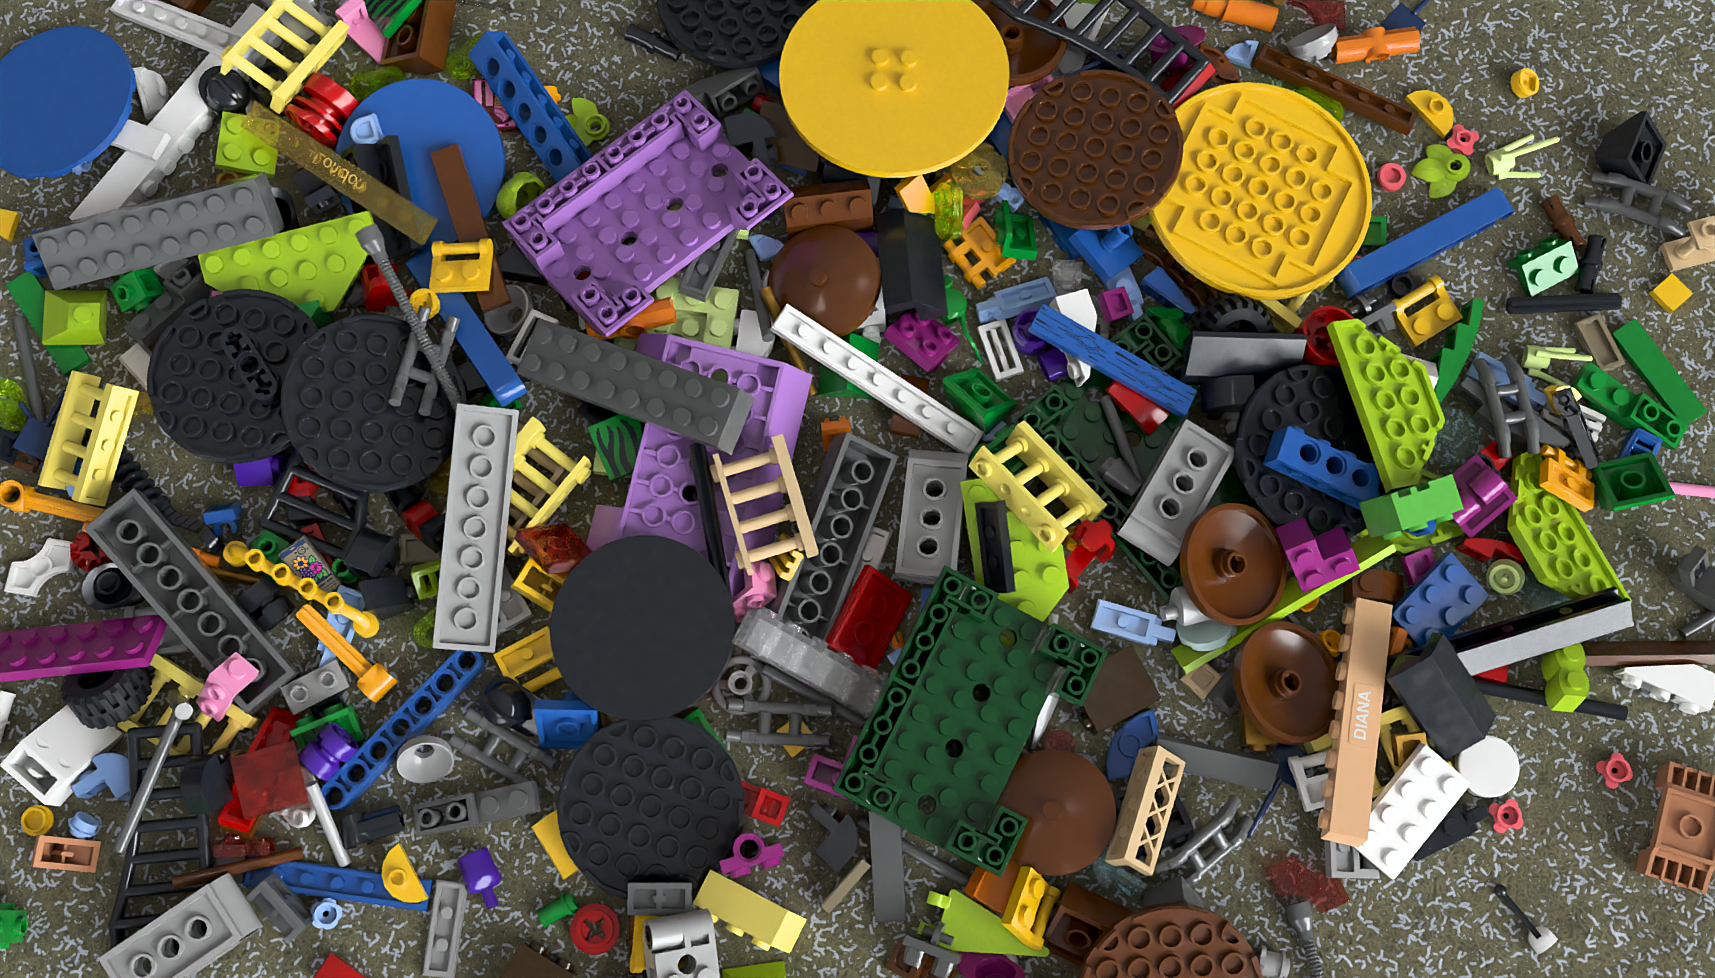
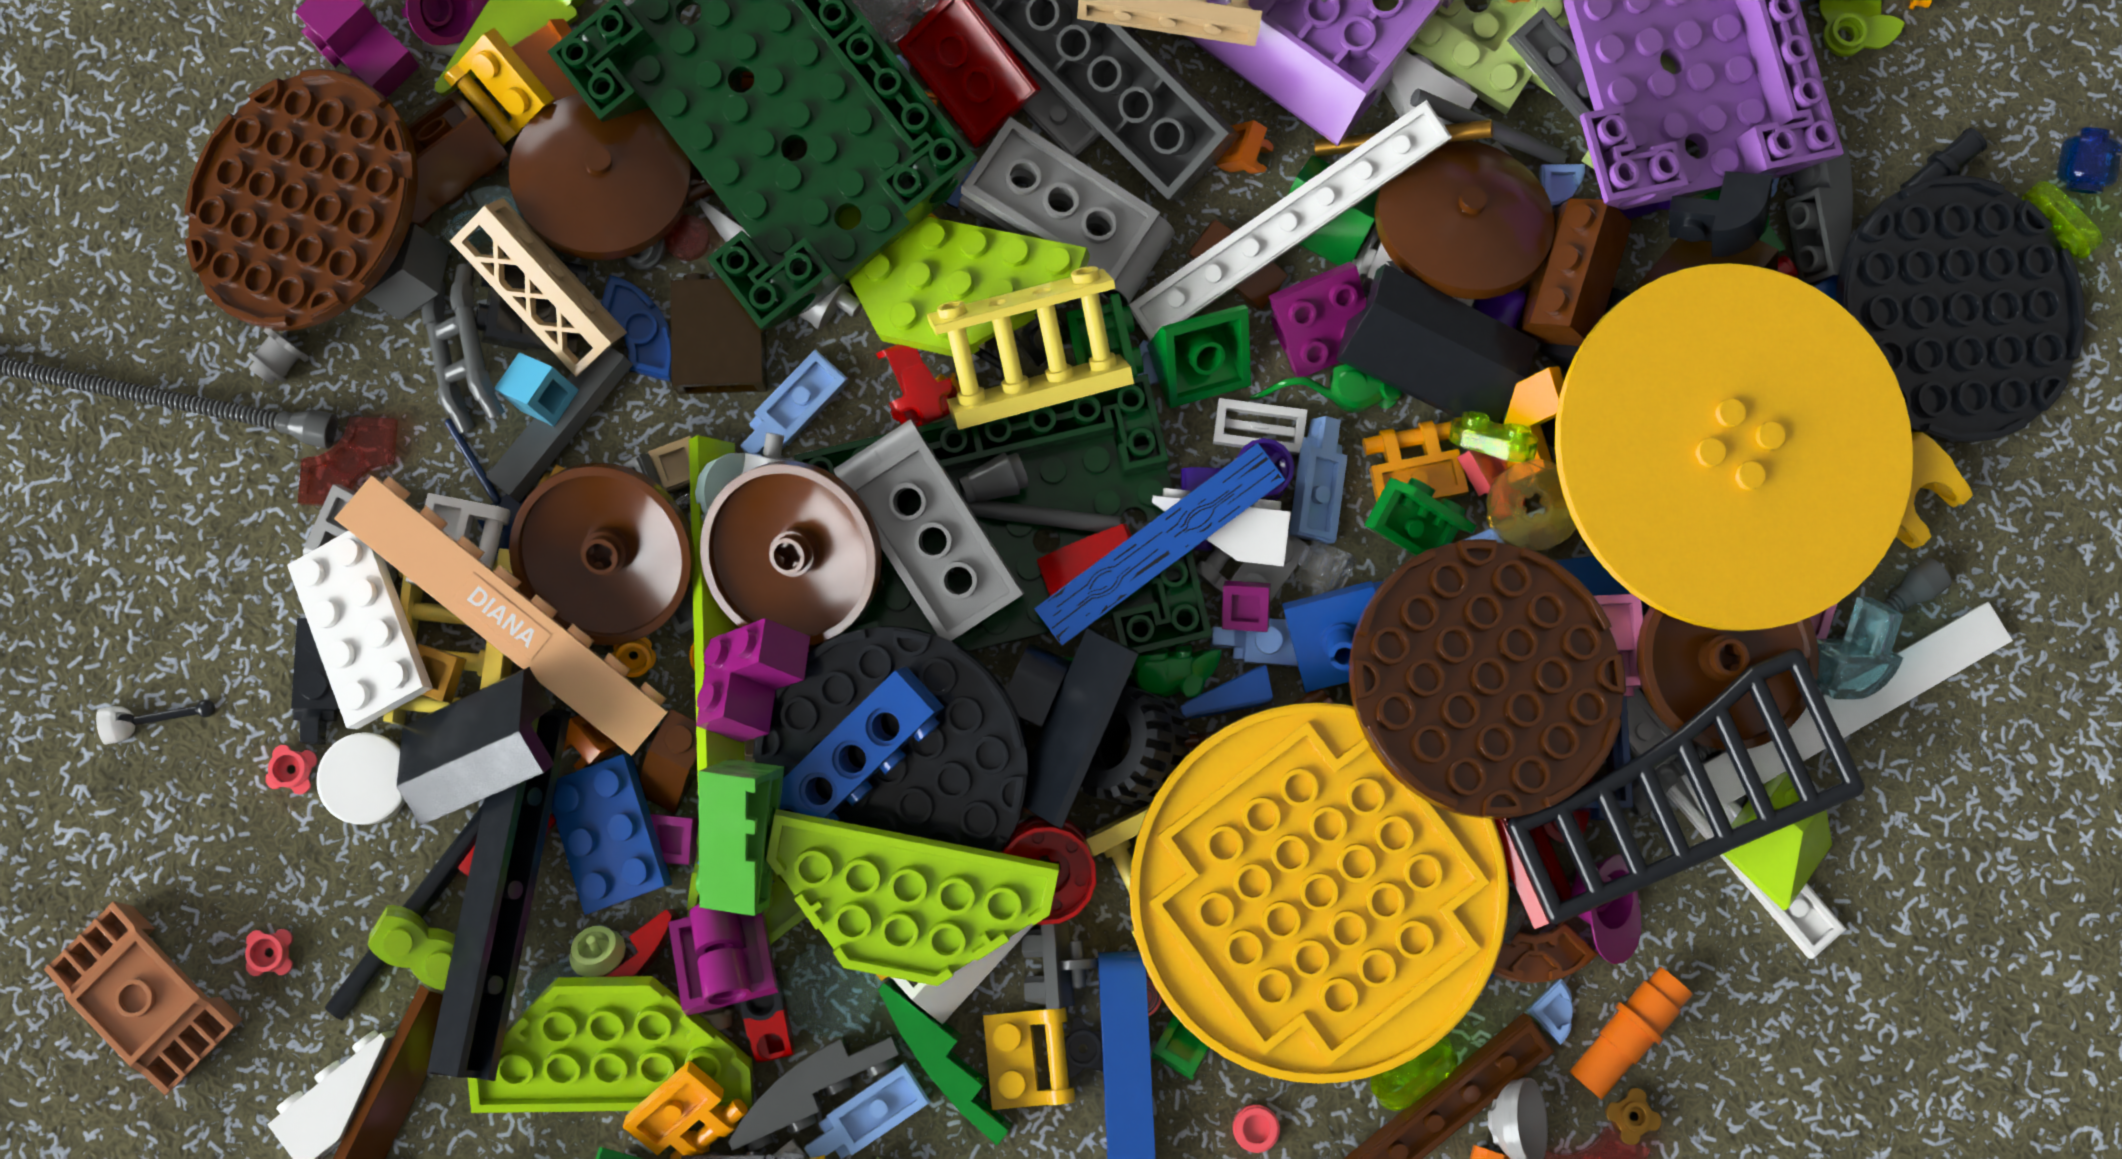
camera: 115 degrees right, 5 degrees up
(995, 546) = (973, 247): black plate -> none
(1206, 783) = (536, 389): none -> medium azure brick
(1501, 419) = (854, 1077): dark grey piece -> none

